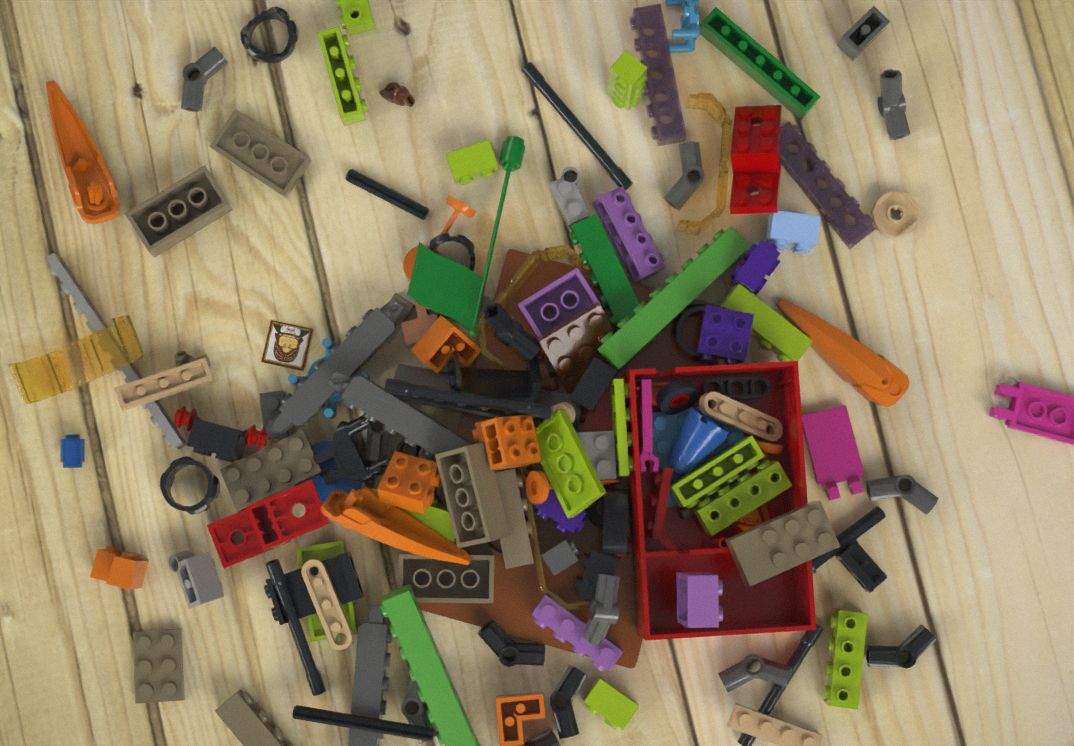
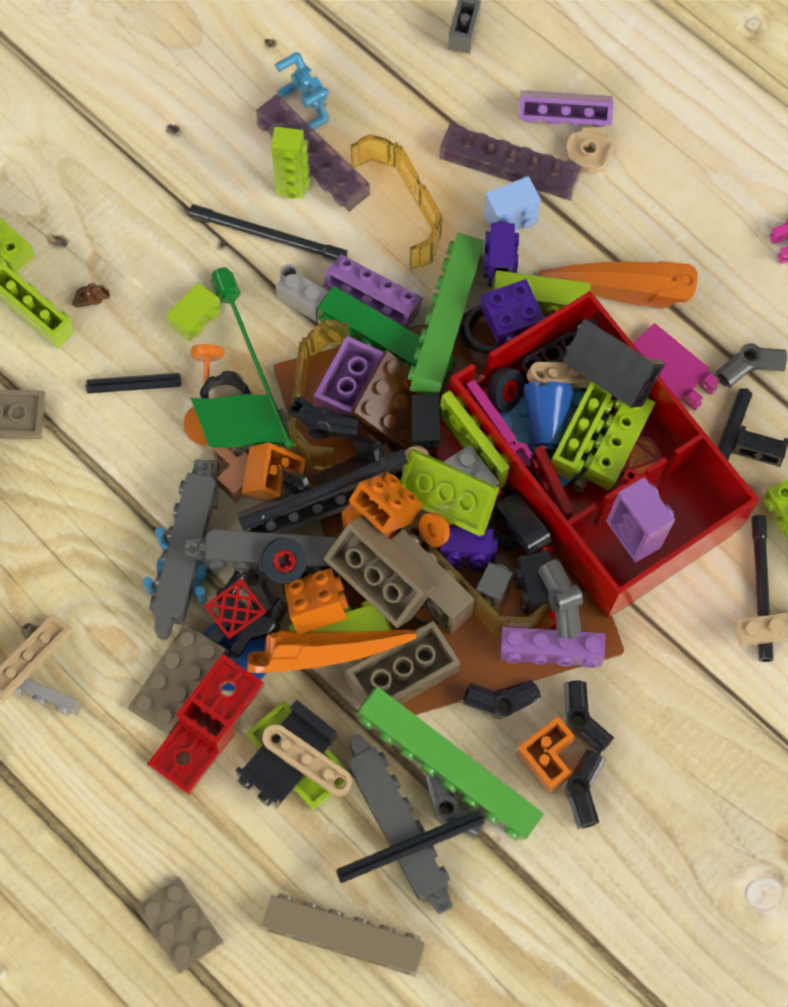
camera: 35 degrees left, 15 degrees down
(119, 569) = (87, 853): orange brick -> none
(168, 477) = (86, 725): black piece -> none
(196, 577) = (167, 816): light grey hinge -> none
(218, 439) = (109, 675): black brick -> none
(270, 411) = (142, 625): dark grey plate -> none
(287, 345) = (121, 565): sticker -> none
(312, 673) = (333, 838): black piece -> none
(325, 449) = (218, 620): none -> red window
(401, 446) = (289, 572): none -> black bush
(610, 703) = (624, 694): lime brick -> none
(690, 163) = (388, 207): dark grey piece -> none
(756, 159) = (443, 167): red bracket -> none
(758, 63) = (393, 95): green brick -> none
(769, 671) = (722, 597): dark grey piece -> none
(772, 436) = (612, 364): none -> black panel
(782, 543) = (679, 439): dark tan brick -> none
(893, 104) = (526, 65): dark grey piece -> none
(899, 165) = (565, 107): none -> medium lavender brick

